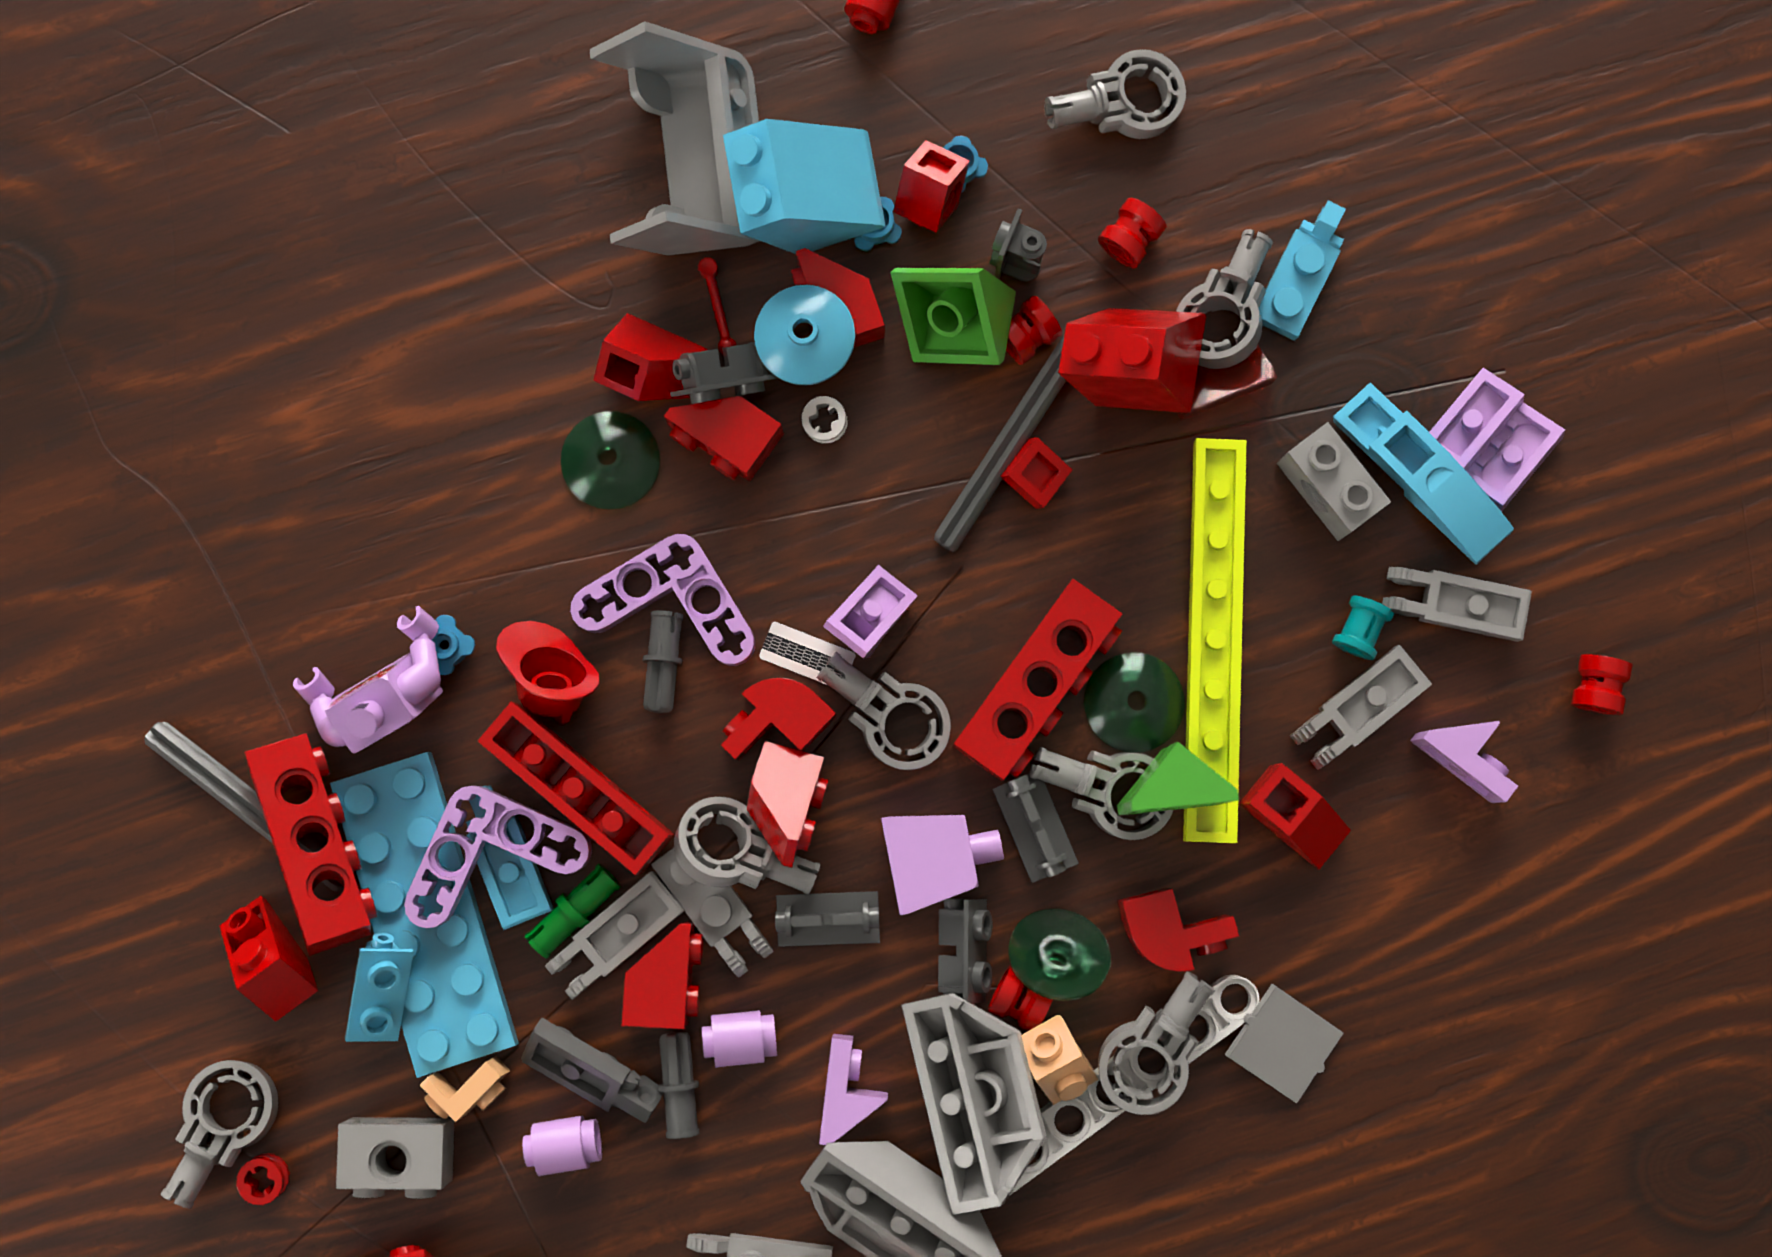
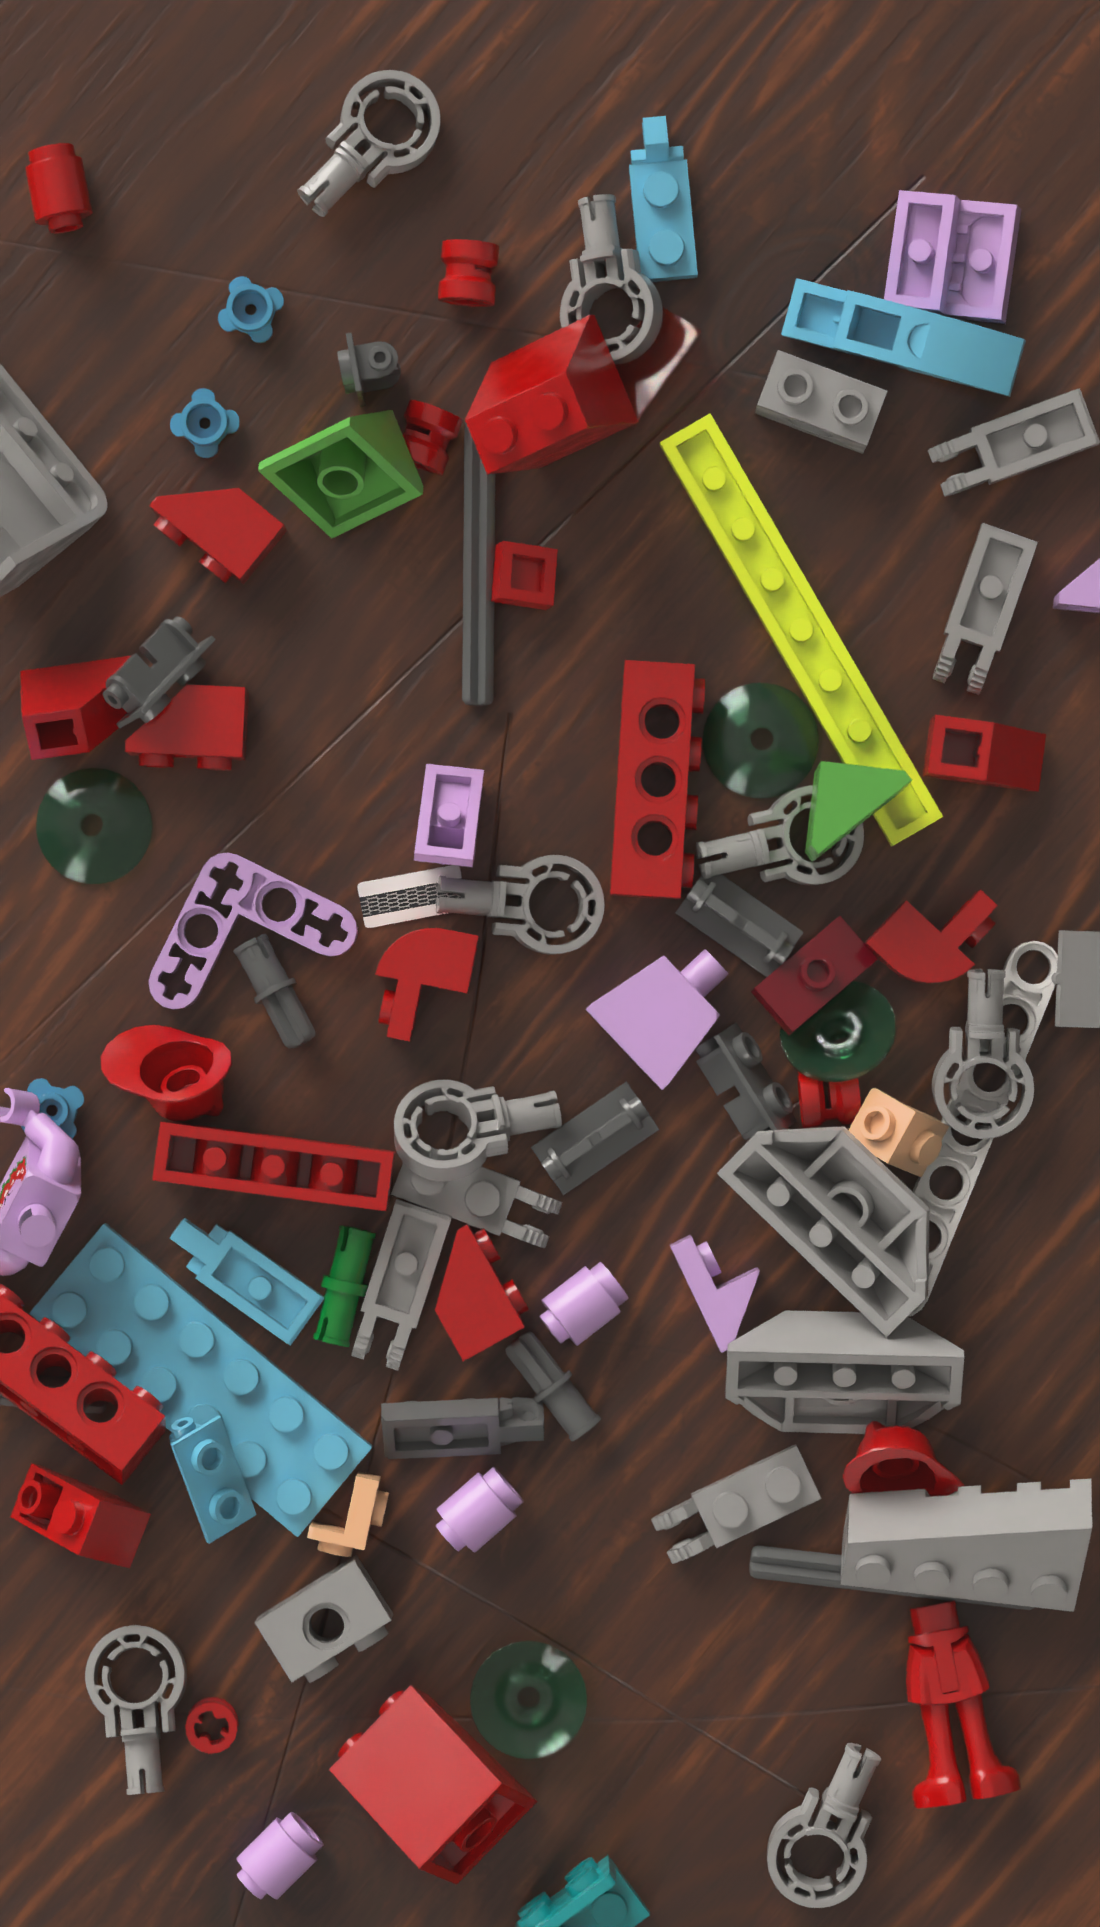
camera: 30 degrees left, 5 degrees up
(492, 830) = (218, 1257): lavender beam -> none
(708, 269) = (68, 573): red hinge -> none
(782, 796) = (478, 1050): slope -> none
(803, 183) = (117, 435): medium azure slope -> none
(811, 358) = (242, 591): medium azure dish -> none
(811, 412) = (263, 652): white bush -> none
(931, 186) = (240, 354): red brick -> none
(1066, 901) = (814, 975): none -> dark red plate
(1363, 627) = (937, 527): teal bush -> none

